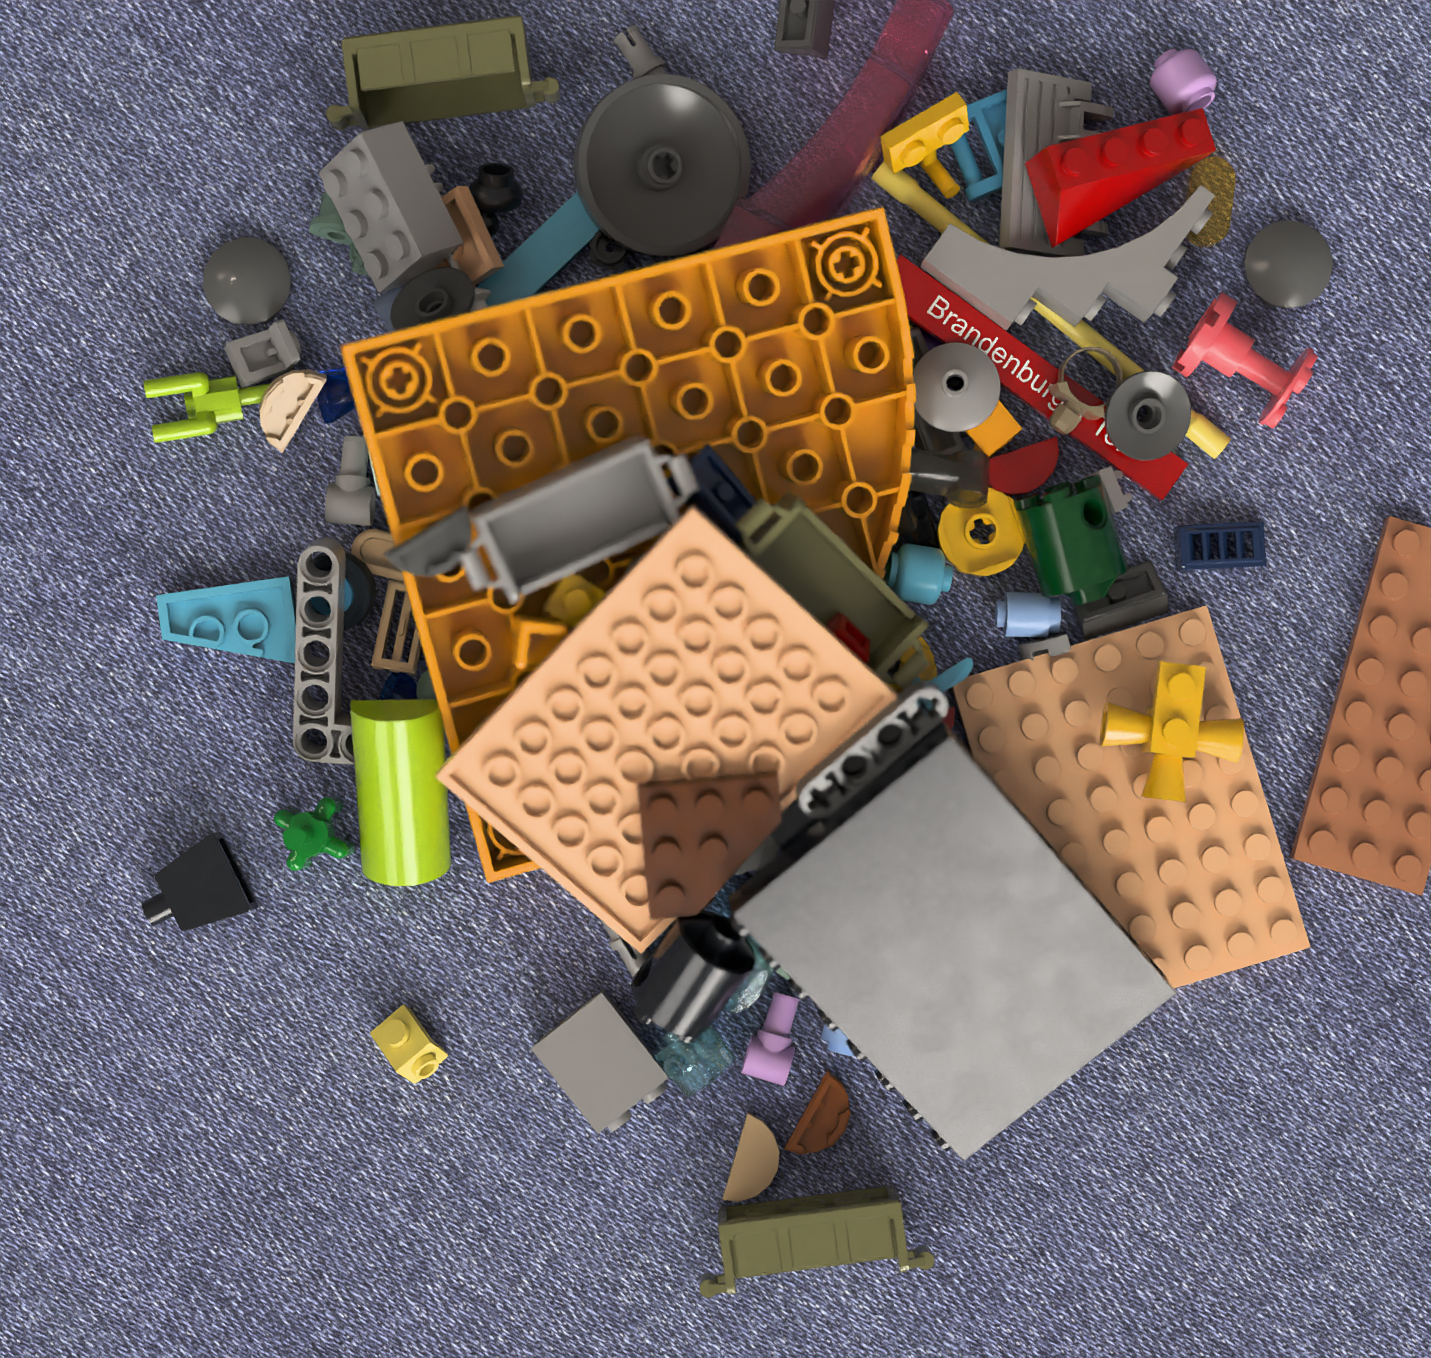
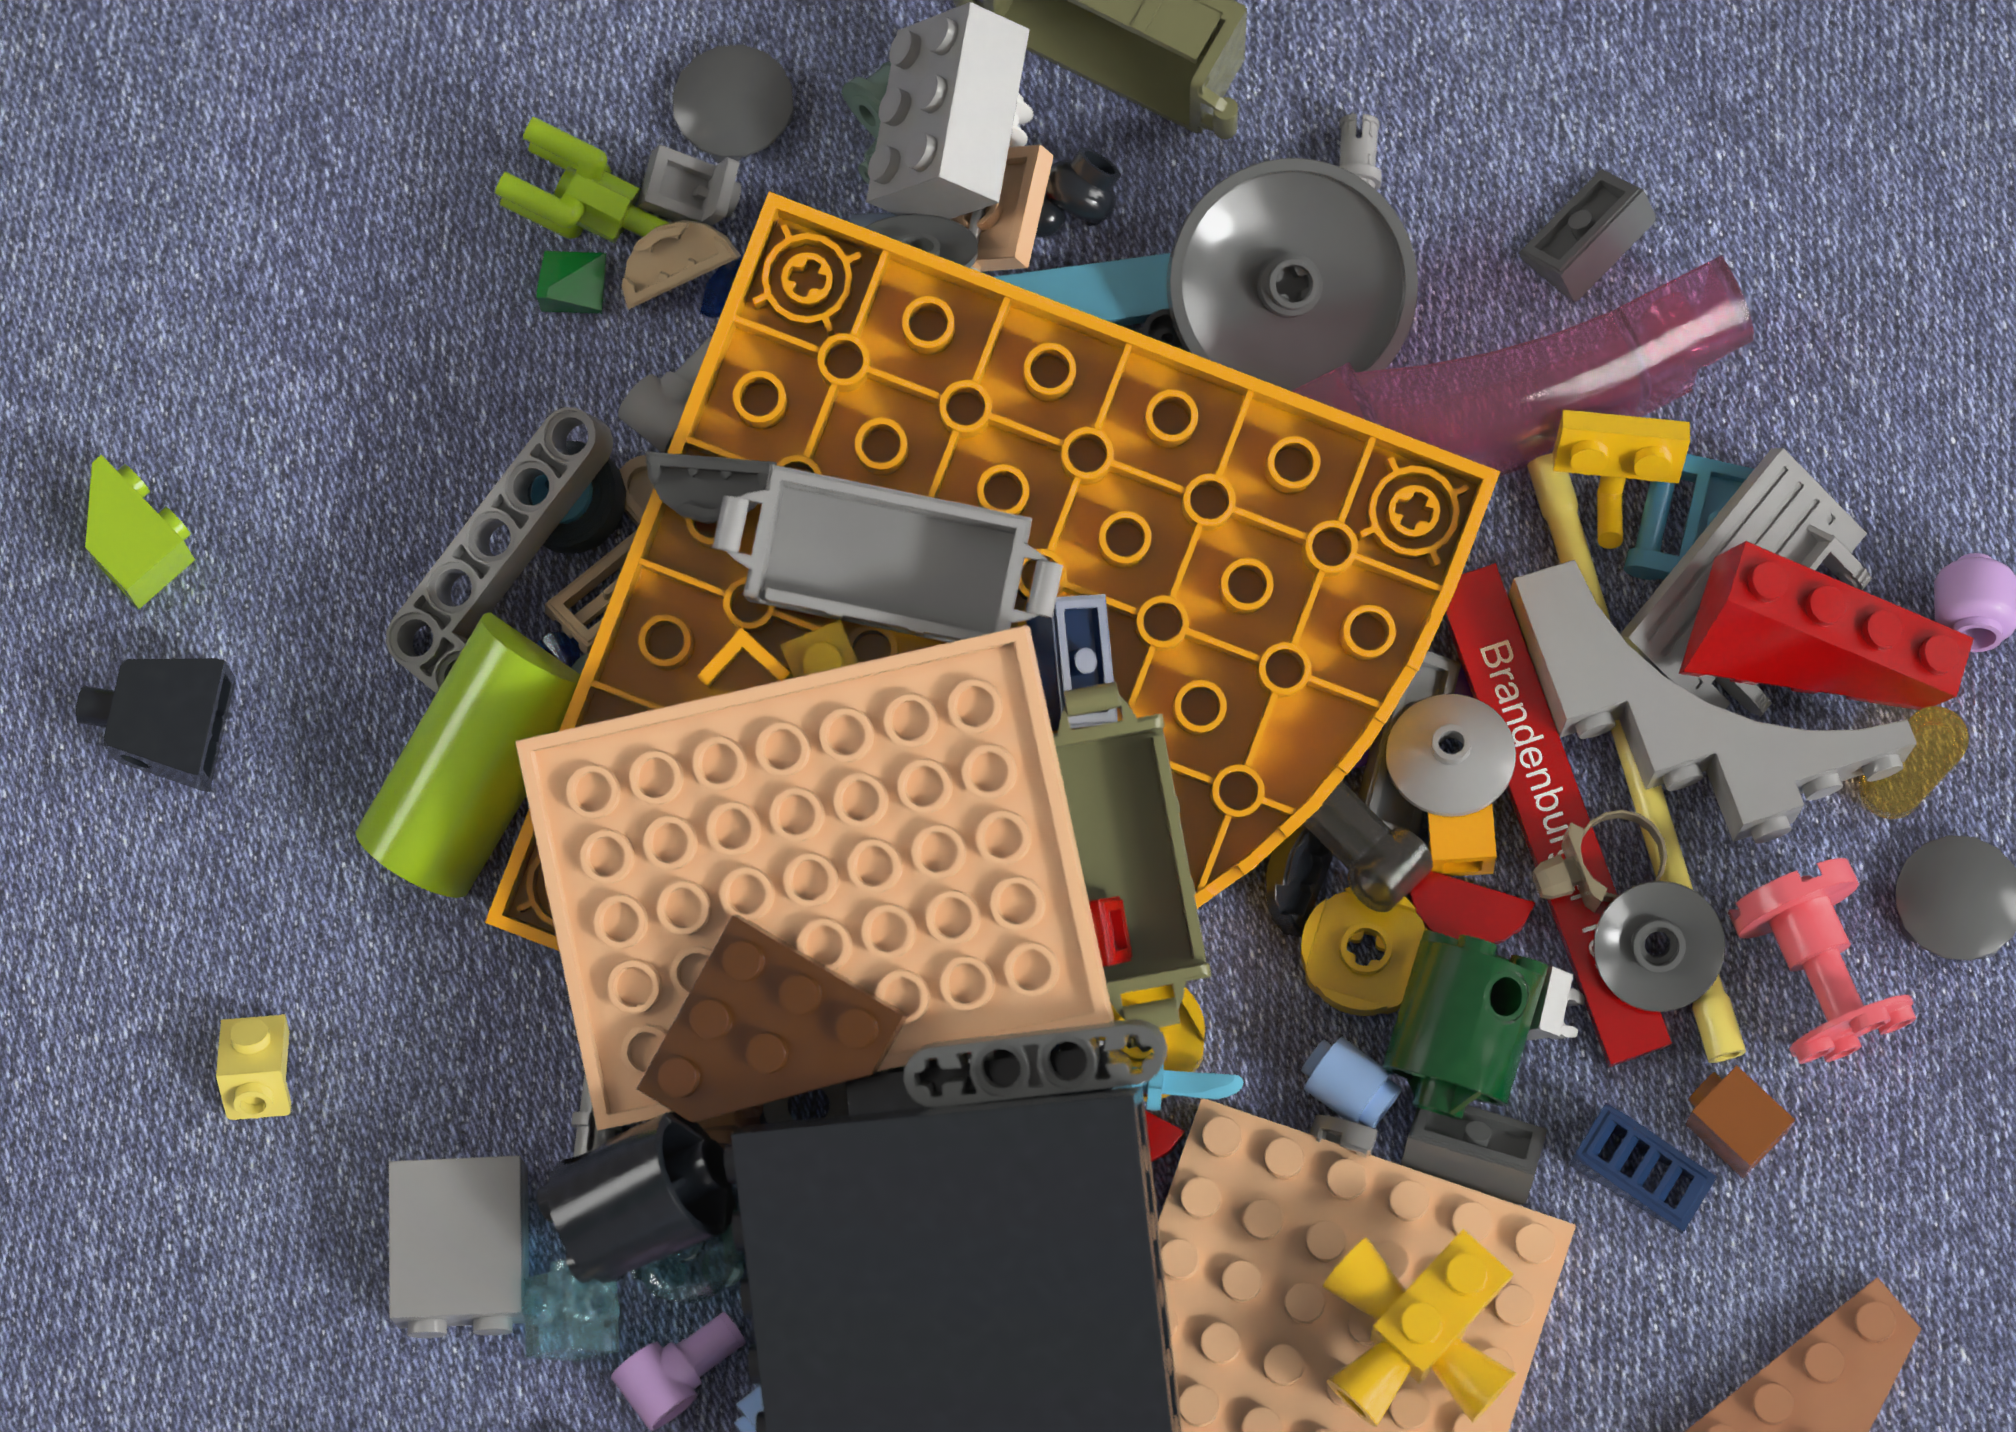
camera: 45 degrees right, 15 degrees down
(97, 798) = (129, 538): none -> lime slope
(235, 618) = (428, 445): medium azure wing -> none
(236, 458) = (572, 282): none -> green slope
(312, 833) = (333, 739): green plant -> none
(918, 573) = (1252, 942): medium azure head -> none
(1255, 482) = (1737, 1119): none -> dark orange brick

